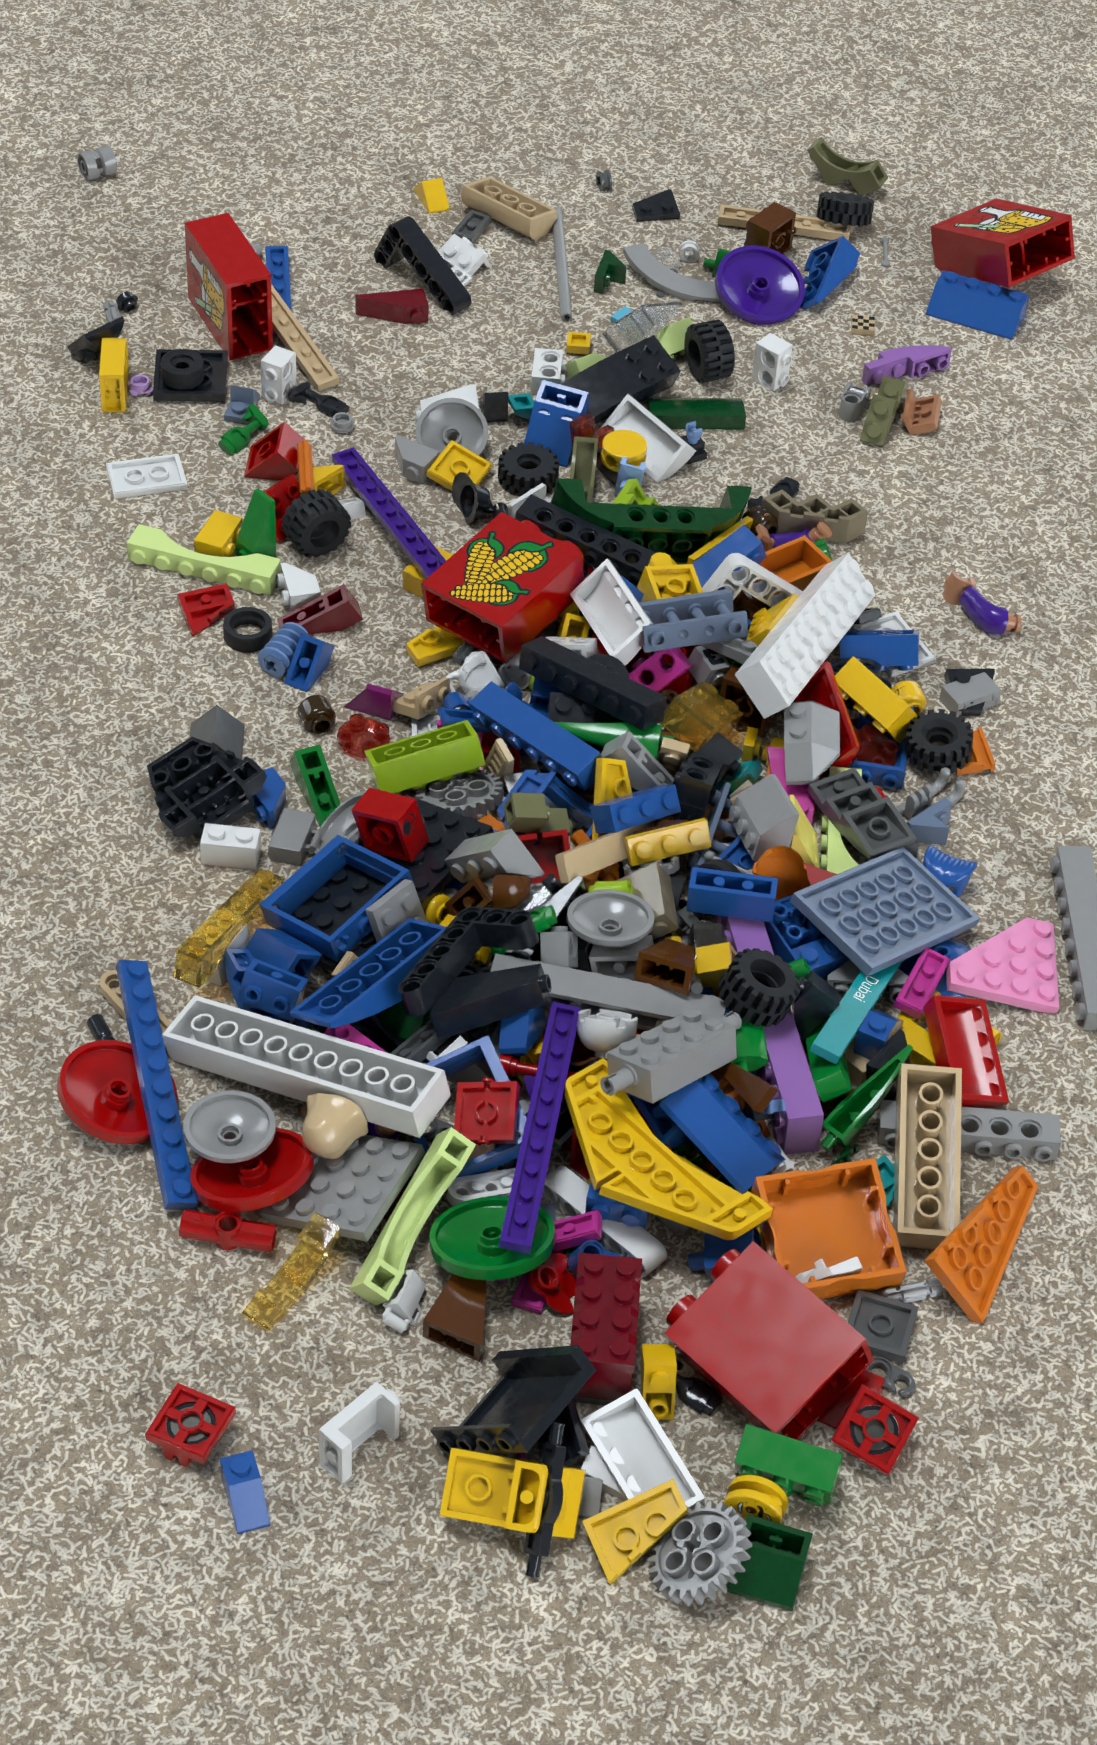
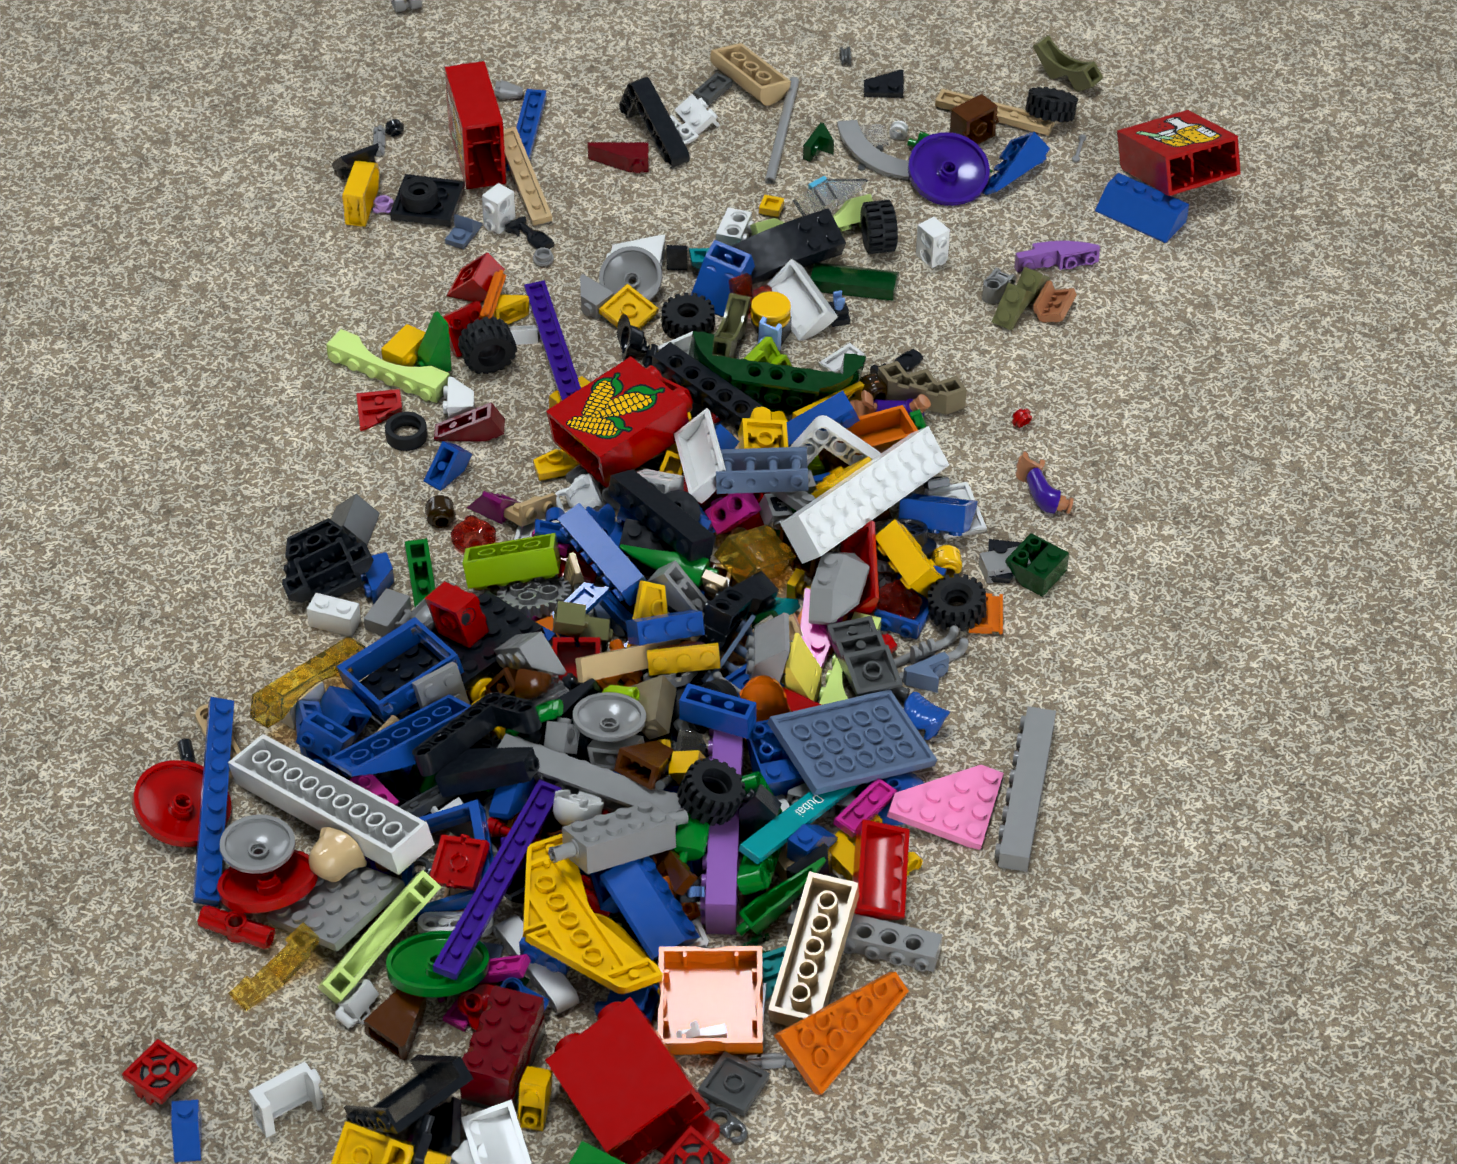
camera: 15 degrees right, 0 degrees up
(146, 476) = (364, 286): white tile -> none
(239, 437) = (452, 260): green piece -> none
(279, 651) = (423, 454): medium blue piece -> none
(432, 195) = (688, 55): yellow slope -> none
(697, 1393) = (564, 1110): black piece -> none
(710, 496) = (834, 361): none -> white tile
(862, 325) = (1032, 215): tan tile -> none
(930, 536) = (1021, 417): none -> red plate
(1017, 686) = (1046, 565): none -> dark green slope

